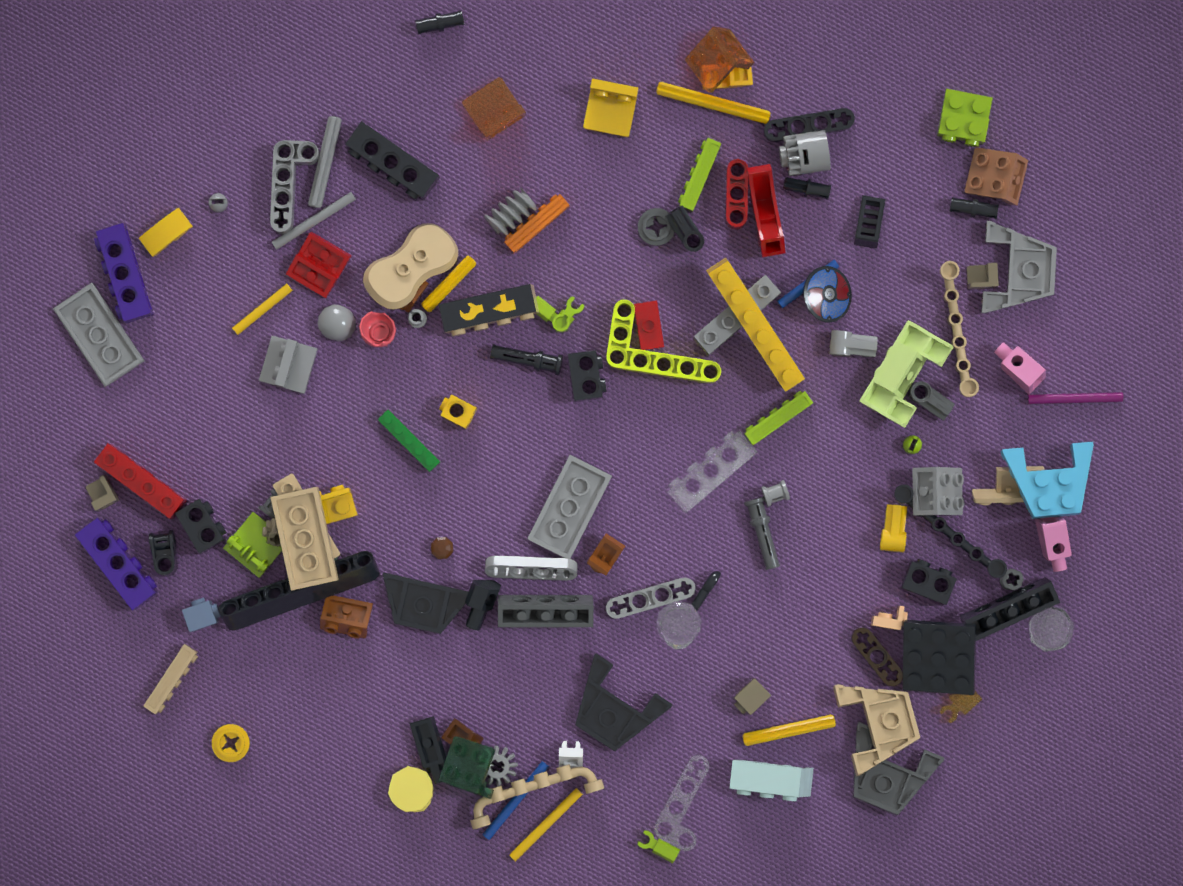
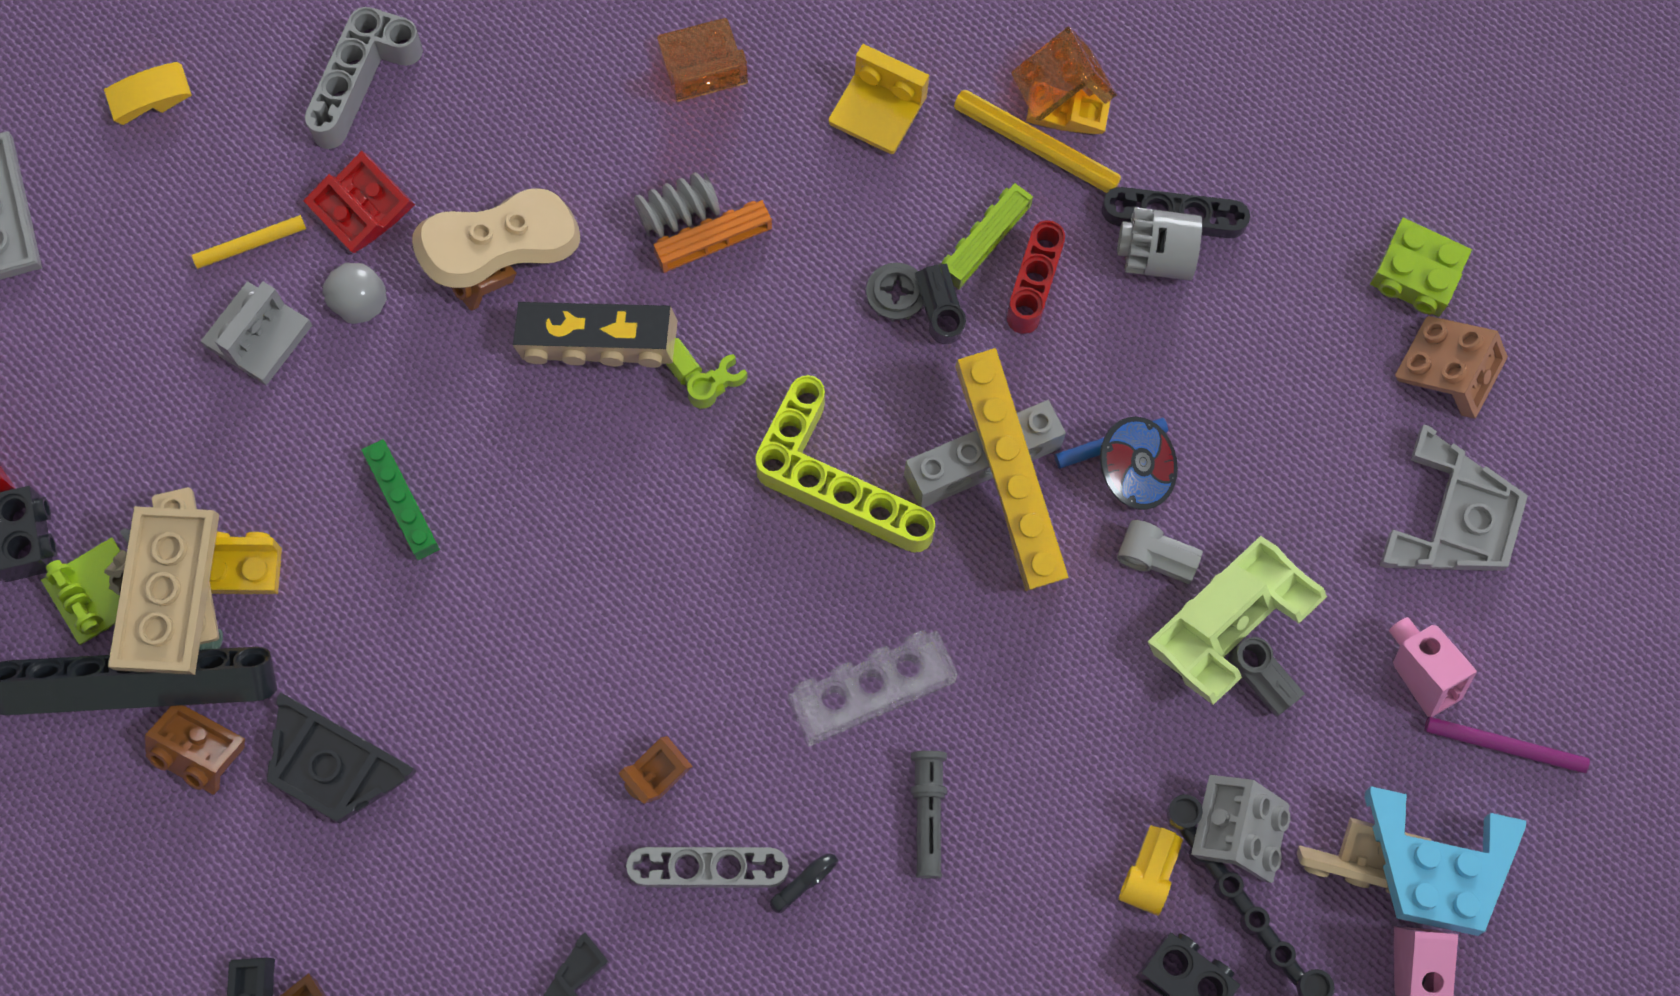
camera: 10 degrees right, 15 degrees down
(140, 306) = (65, 182): dark purple brick -> none
(218, 207) = (240, 80): light grey hinge -> none
(314, 220) = (376, 139): light grey bar -> none
(325, 162) = (423, 63): light grey axle -> none
(365, 136) = (495, 41): black brick -> none
(377, 329) = (410, 315): coral hair -> none
(418, 324) = (477, 311): light grey pin -> none
(442, 548) = (392, 683): reddish brown tile -> none
(448, 283) = (548, 283): yellow axle -> none
(468, 413) = (501, 489): yellow brick -> none
(480, 599) = (426, 780): black piece -> none
(538, 361) = (645, 440): black pin -> none
(545, 610) = (522, 833): dark grey brick -> none
(556, 569) = (525, 751): light grey beam -> none
(569, 507) = (621, 678): light grey plate -> none
(581, 376) = (707, 478): black brick -> none
(649, 325) = (840, 432): red plate -> none
(678, 624) = (741, 925): clear hat -> none
(765, 210) = (1075, 306): red arch -> none
(775, 493) = (968, 753): light grey bush -> none
(778, 417) = (1007, 634): lime piece -> none
(807, 187) = (1148, 299): black axle -> none
(864, 240) = (1222, 398): black slope -> none
(907, 442) = (1224, 747): lime hinge -> none
(968, 386) = (1337, 666): tan bar -> none
(974, 208) = (1406, 401): black pin -> none
(982, 276) = (1397, 510): dark tan panel -> none

